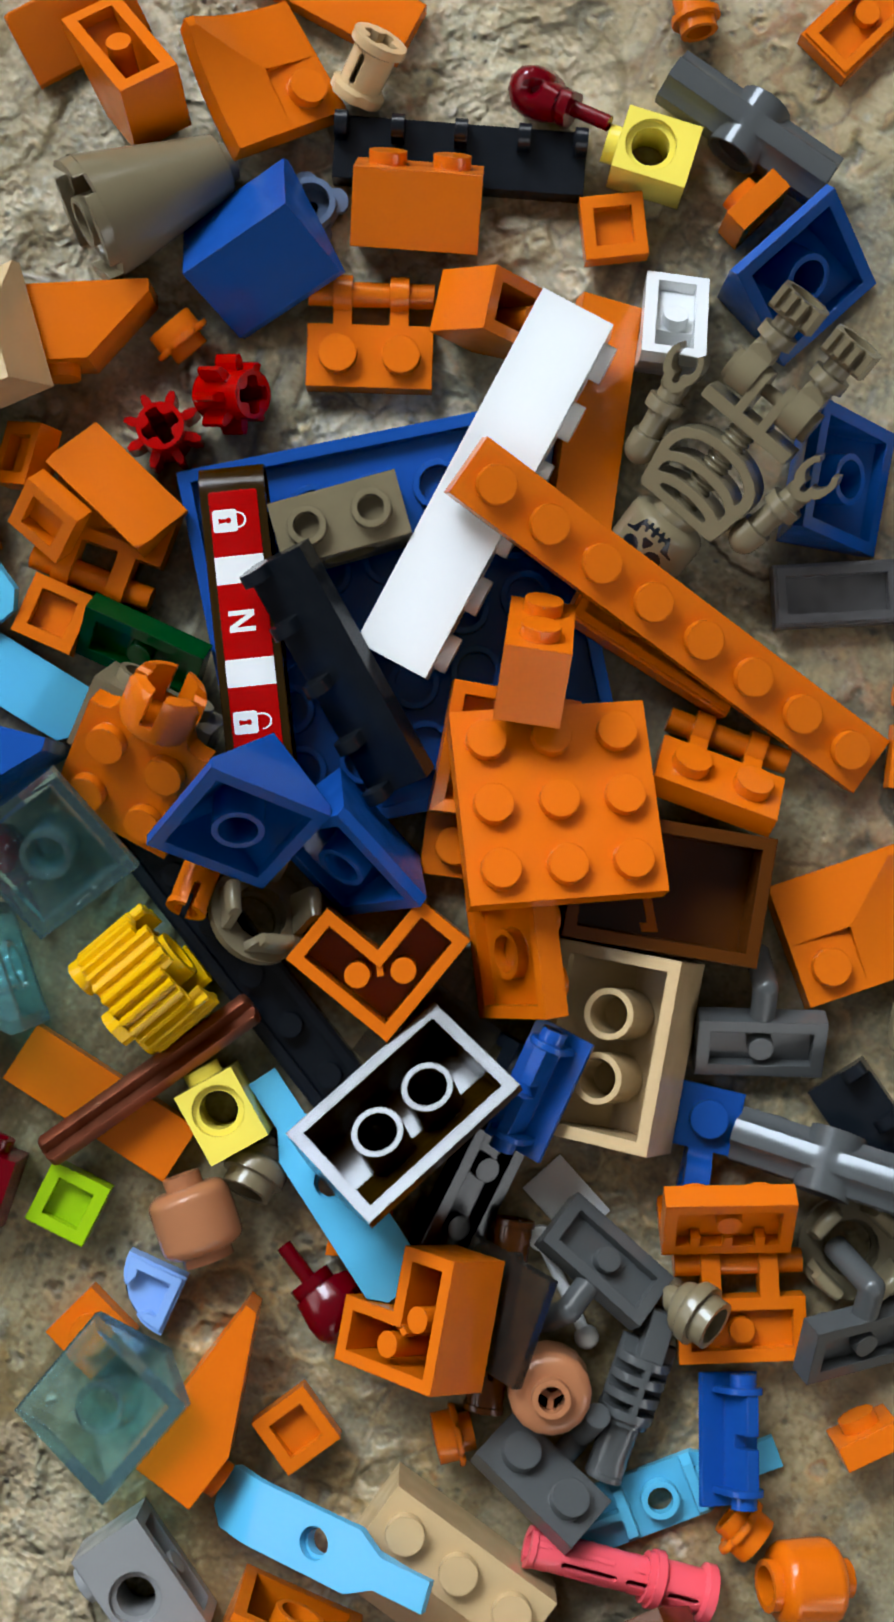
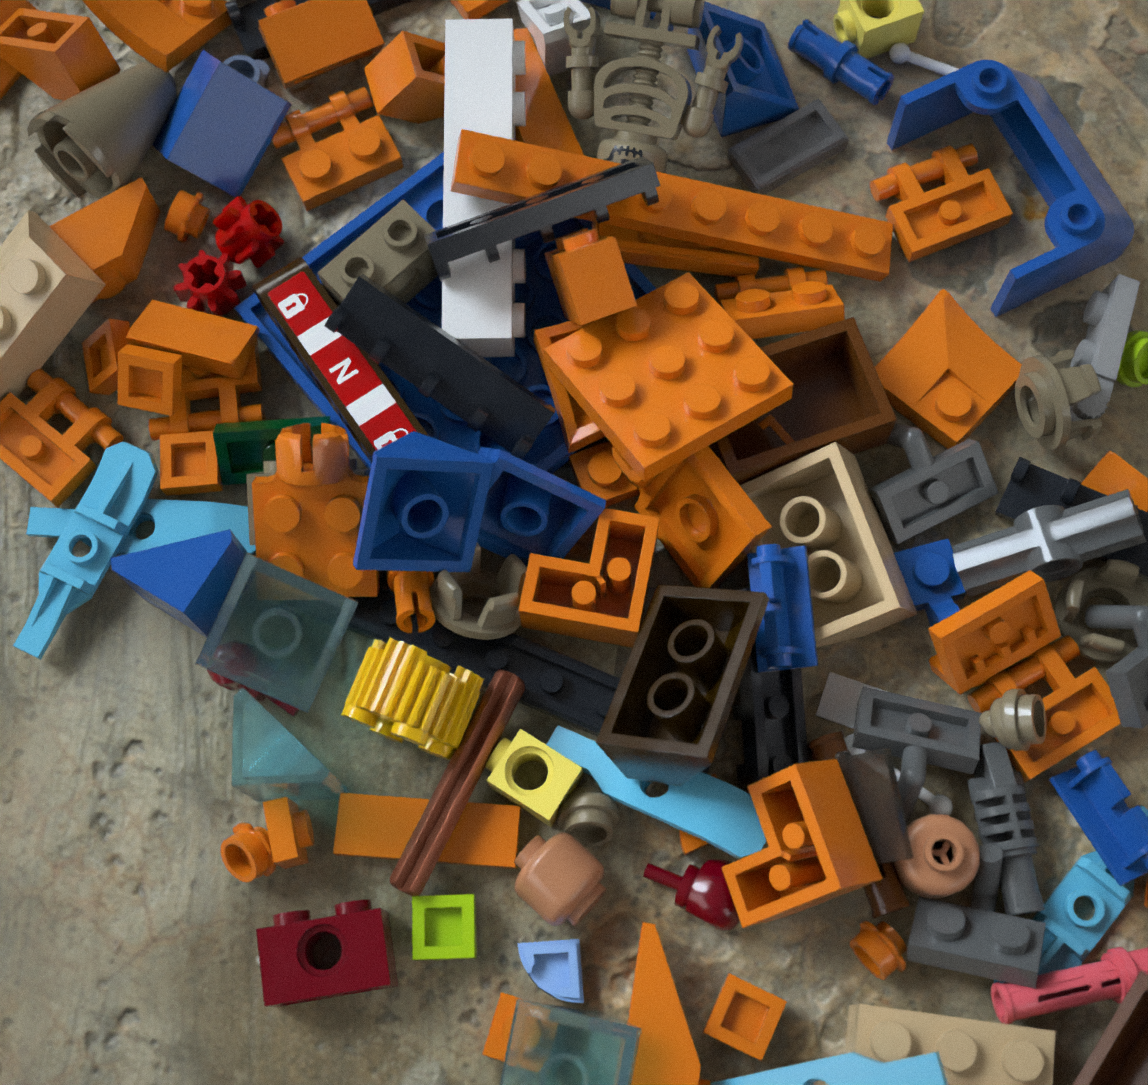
camera: 25 degrees left, 15 degrees down
(518, 574) = (541, 212): none -> black hinge

